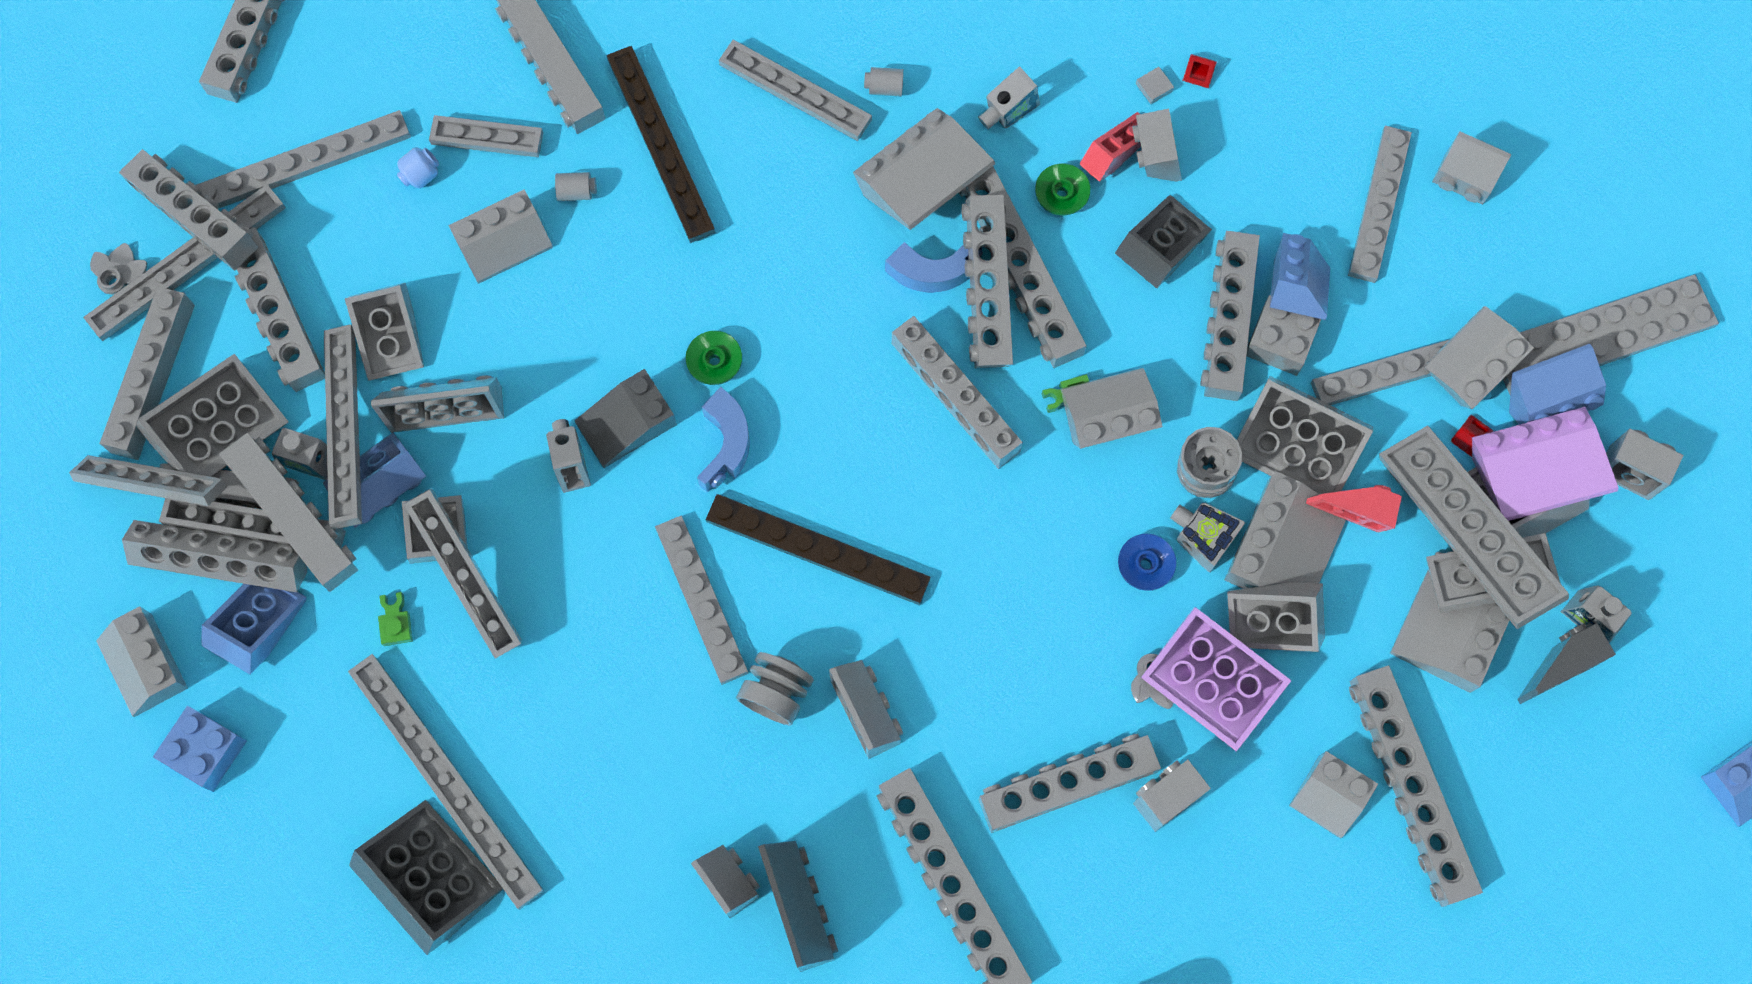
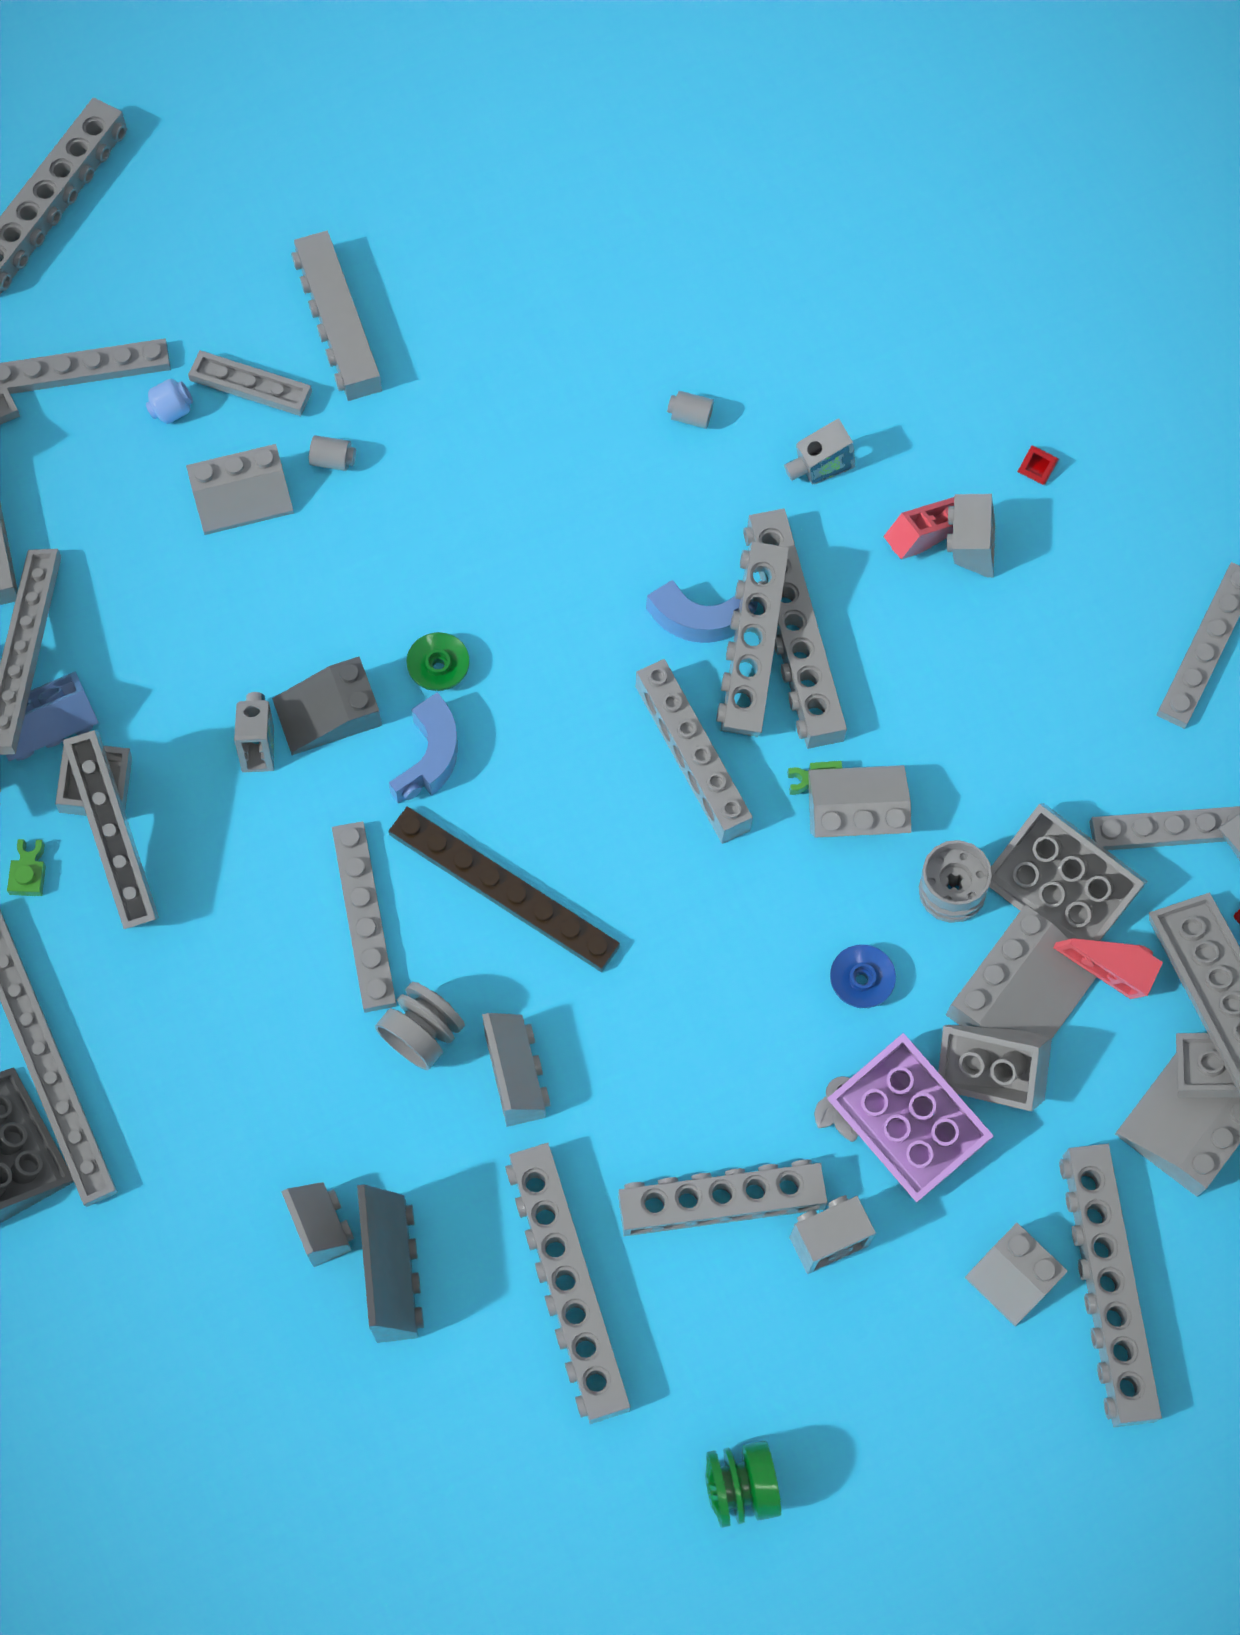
camera: 10 degrees right, 5 degrees down
(385, 331) = (93, 563): light grey slope -> none
(440, 404) = (131, 651): light grey slope -> none
(661, 144) = (434, 428): dark brown plate -> none
(795, 90) = (592, 400): light grey plate -> none
(922, 169) = (709, 506): light grey slope -> none
(1062, 178) = (860, 548): green dish -> none
(1154, 85) = (985, 470): light grey tile -> none
(1162, 241) = (956, 636): dark grey slope -> none
(1206, 533) = (936, 958): torso -> none
(1244, 249) = (996, 802): light grey brick -> none
(1282, 338) = (1068, 762): light grey brick -> none
(1300, 278) = (1100, 704): medium blue slope -> none

